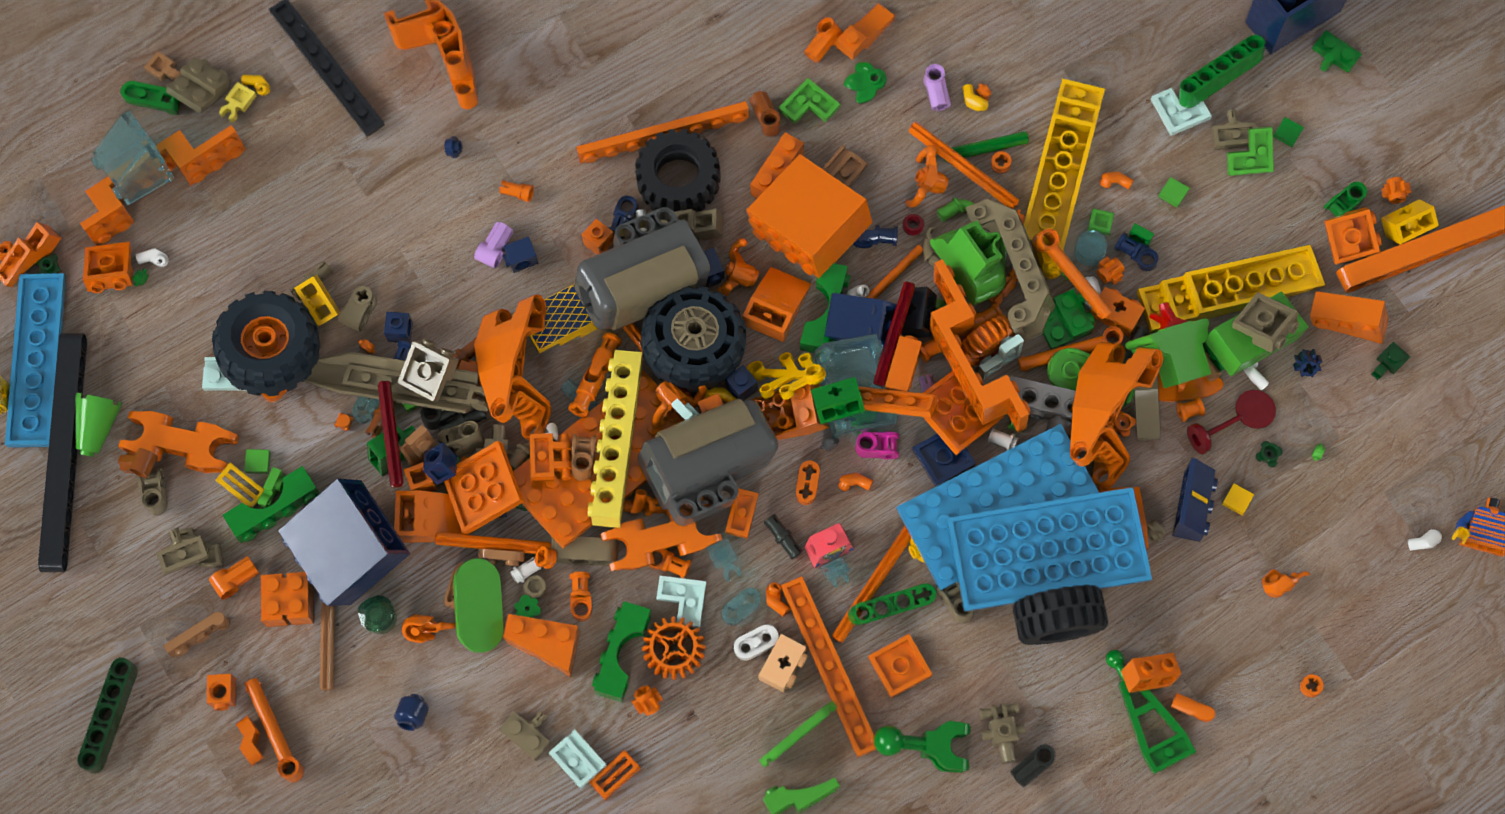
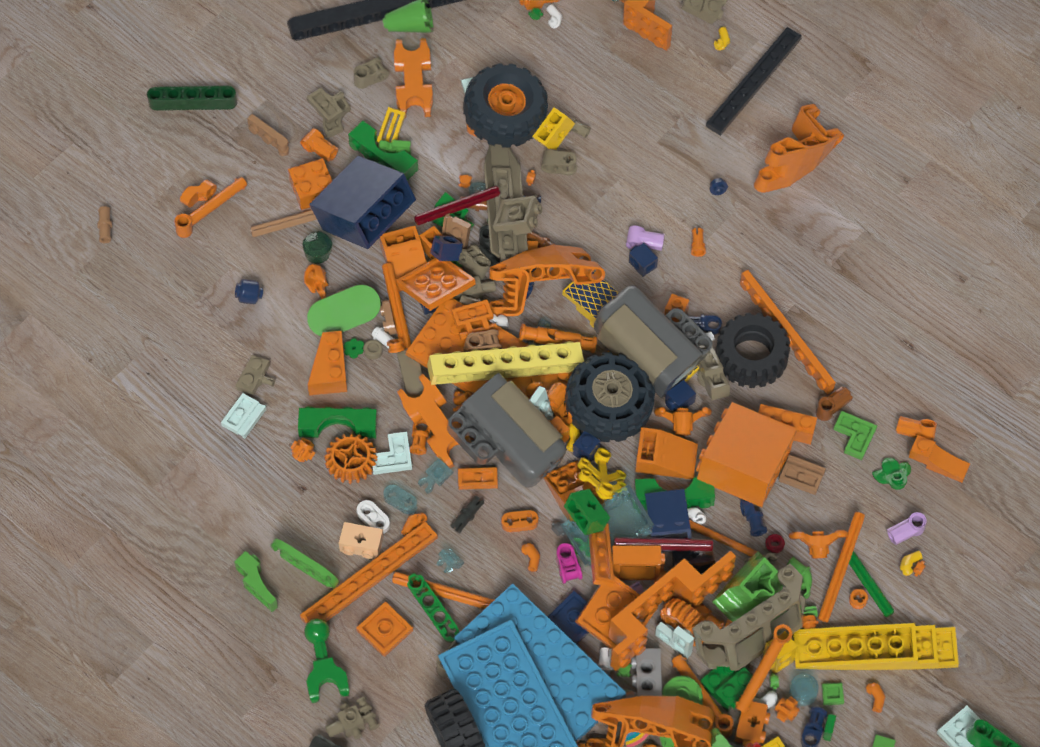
camera: 70 degrees right, 10 degrees down
(138, 463) = (385, 55): dark orange piece -> none
(219, 681) = (236, 166): orange brick -> none
(237, 99) = (703, 31): light yellow plate -> none
(257, 461) = (415, 133): bright green tile -> none
(398, 327) = (552, 192): dark blue brick -> none
(580, 596) = (374, 381): orange connector -> none
(605, 795) = (252, 454): orange tile -> none
(828, 545) = (467, 546): coral torso -> none

